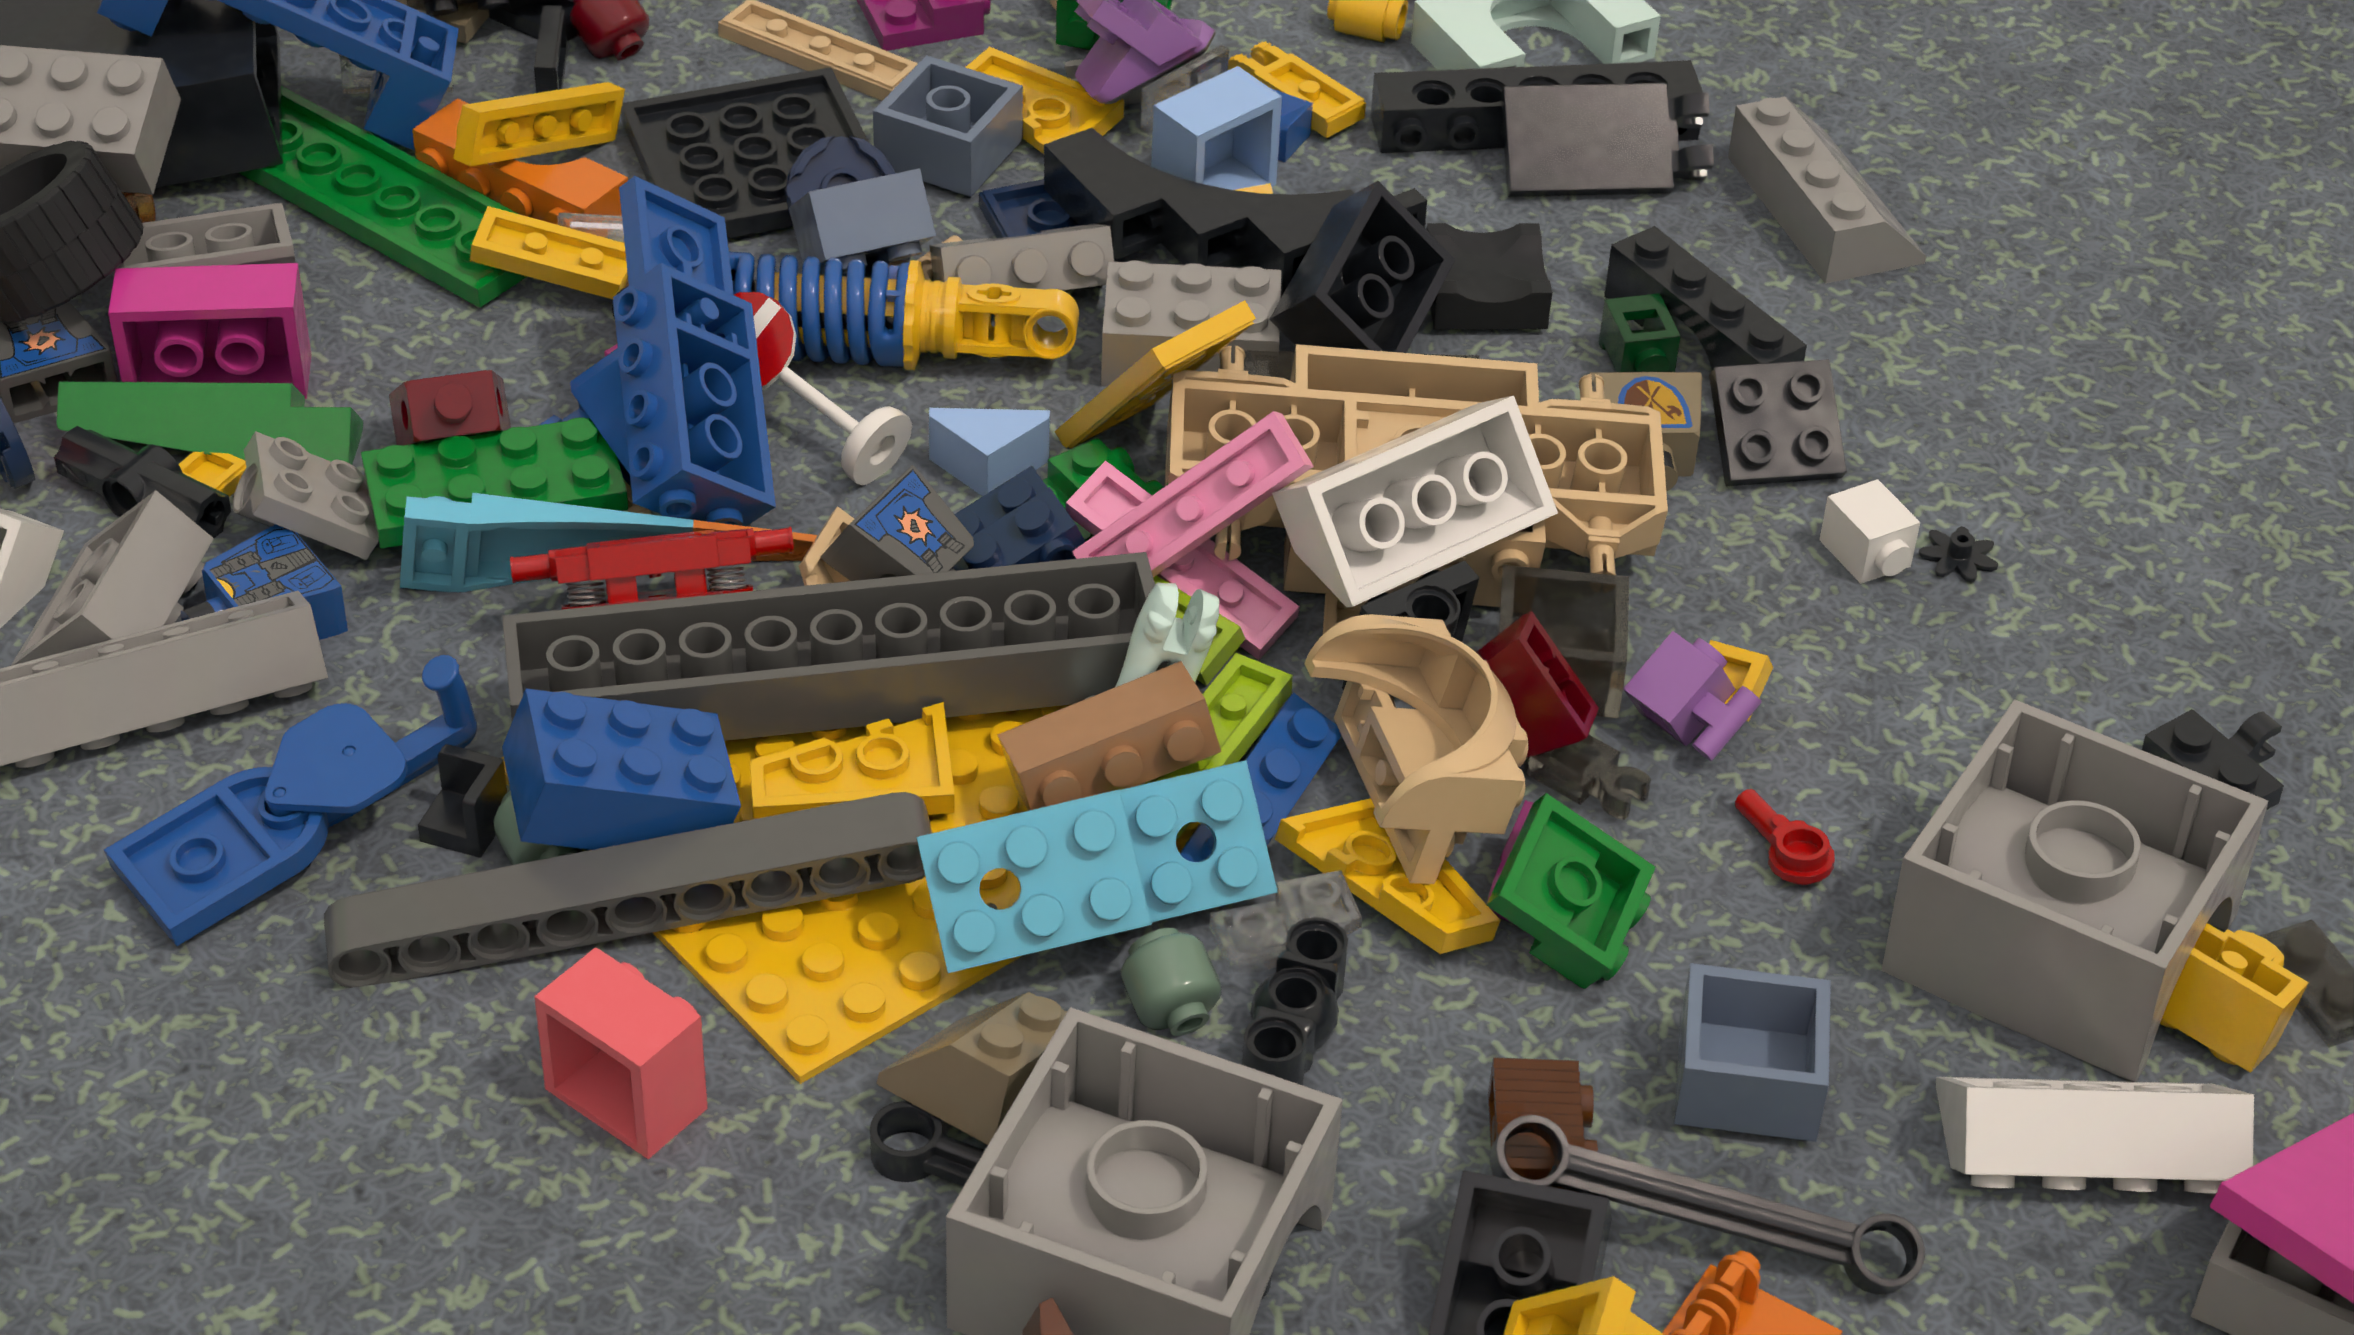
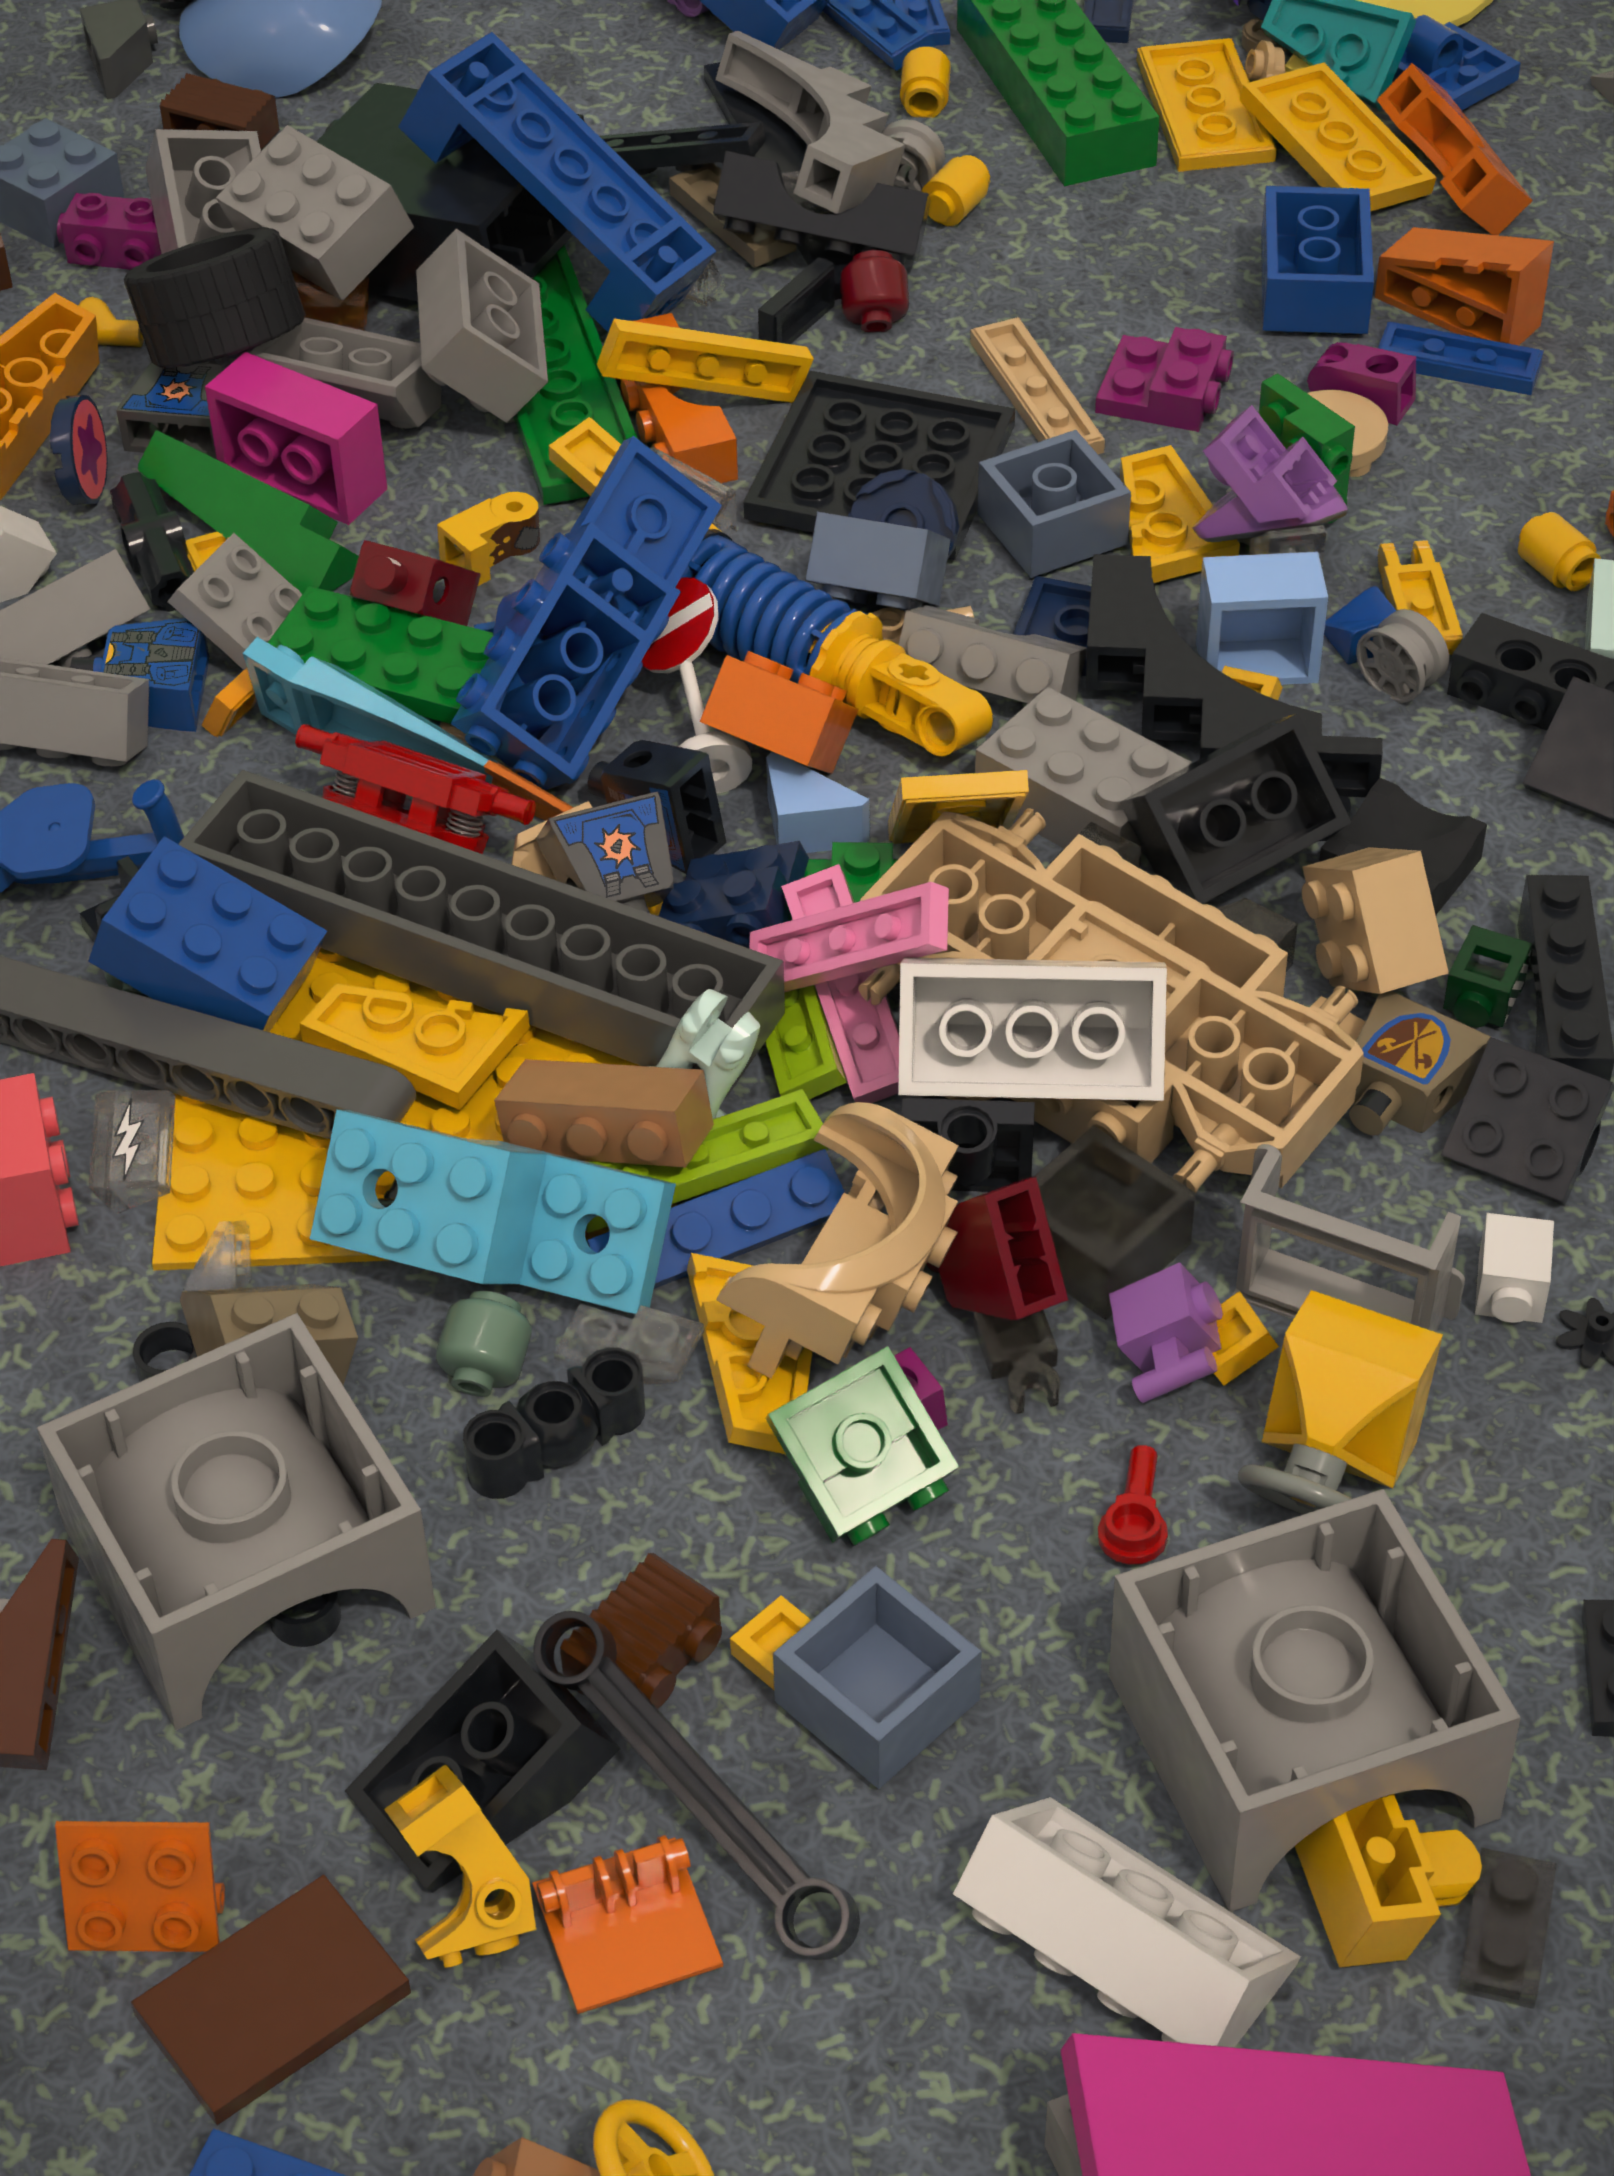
camera: 40 degrees right, 5 degrees up
(312, 168) = (481, 326): none -> light grey brick
(377, 583) = (230, 705): none -> light orange tile
(468, 339) = (490, 533): none -> yellow leg
(687, 971) = (131, 1147): none -> clear slope
(853, 472) = (685, 792): none -> black torso
(898, 1023) = (224, 1260): none -> clear slope
(915, 368) = (789, 718): none -> orange piece
(1339, 129) = (1405, 653): none -> light grey wheel
(1548, 314) = (1374, 920): none -> tan piece
(1641, 1078) = (764, 1635): none -> yellow plate
(1773, 620) = (1283, 1282): none -> light grey piece
(1879, 669) = (1343, 1402): none -> yellow piece

